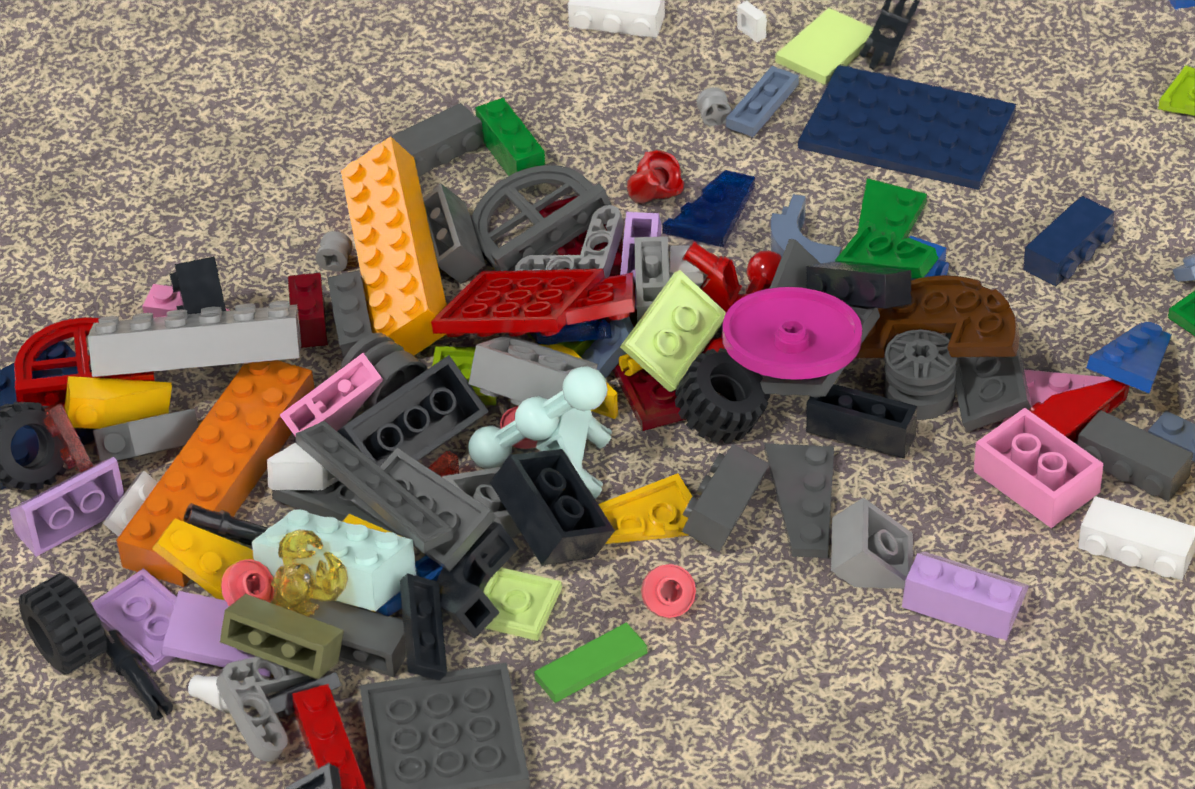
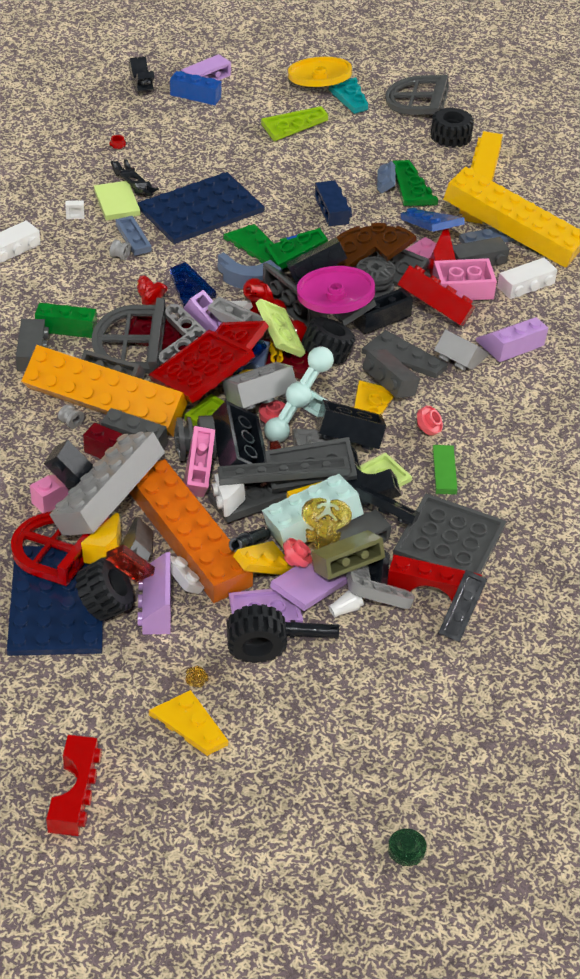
camera: 60 degrees left, 0 degrees up
(948, 453) = (437, 296): none -> red brick

